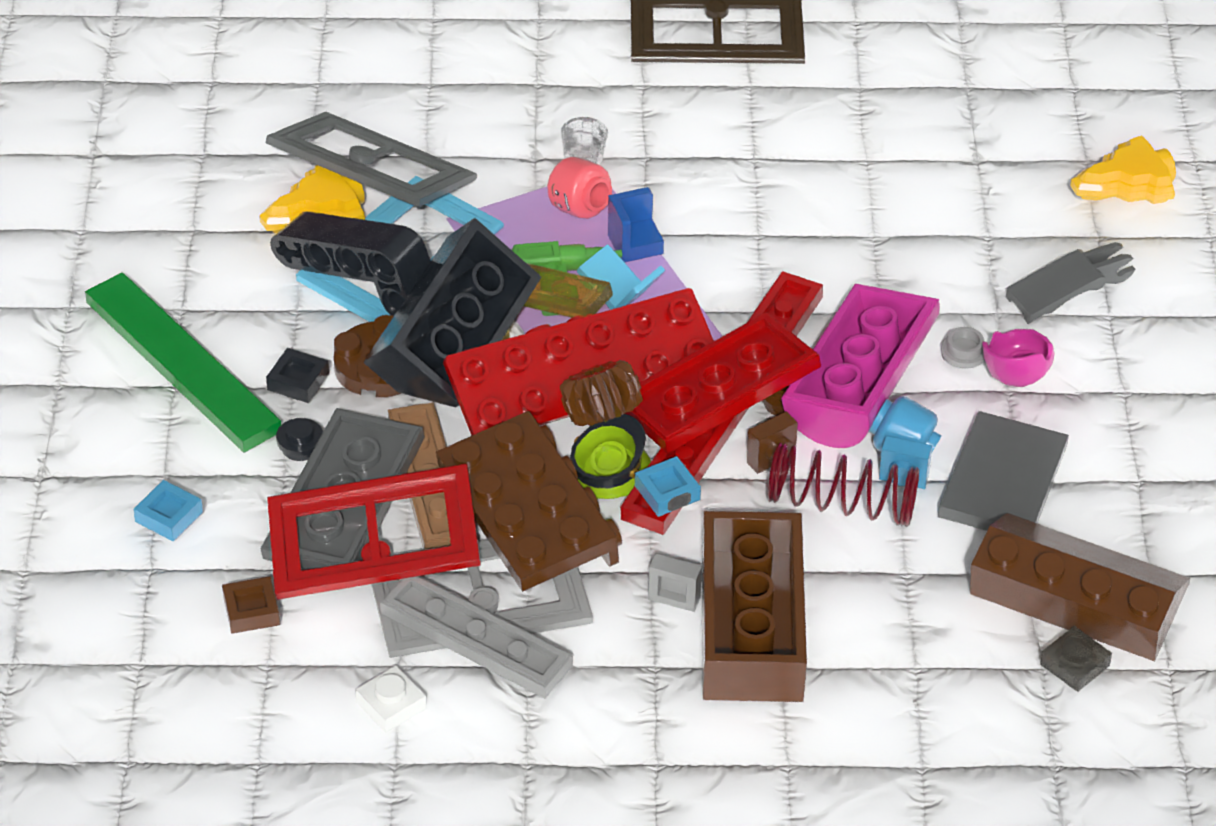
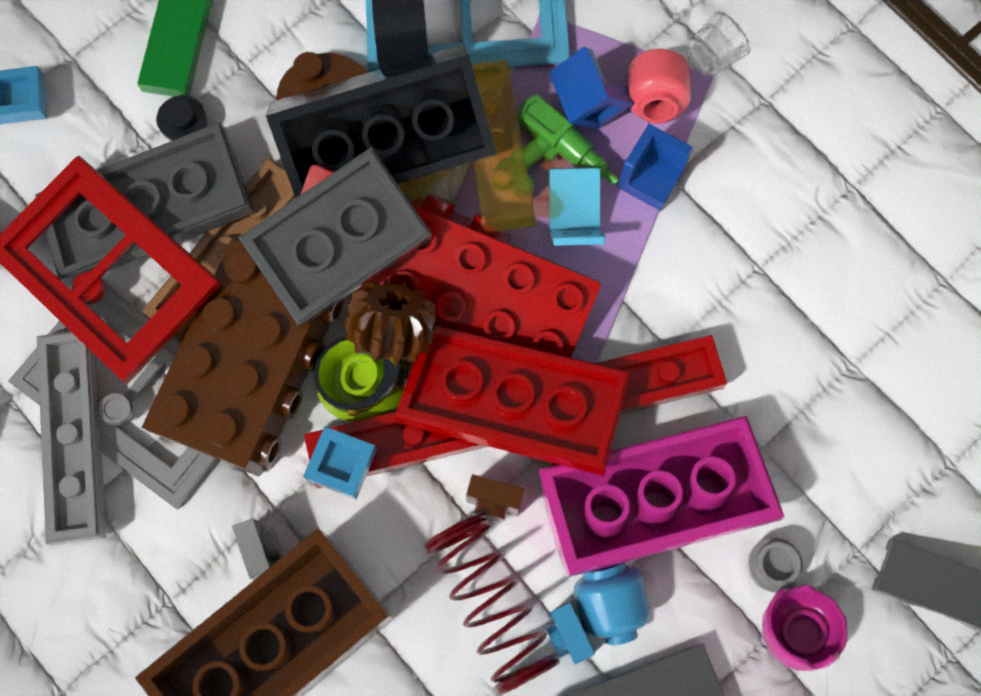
camera: 50 degrees right, 30 degrees up
(297, 375) = (245, 60): black plate -> none
(513, 376) = (335, 237): none -> dark grey tile
(544, 214) = (585, 93): none -> blue panel

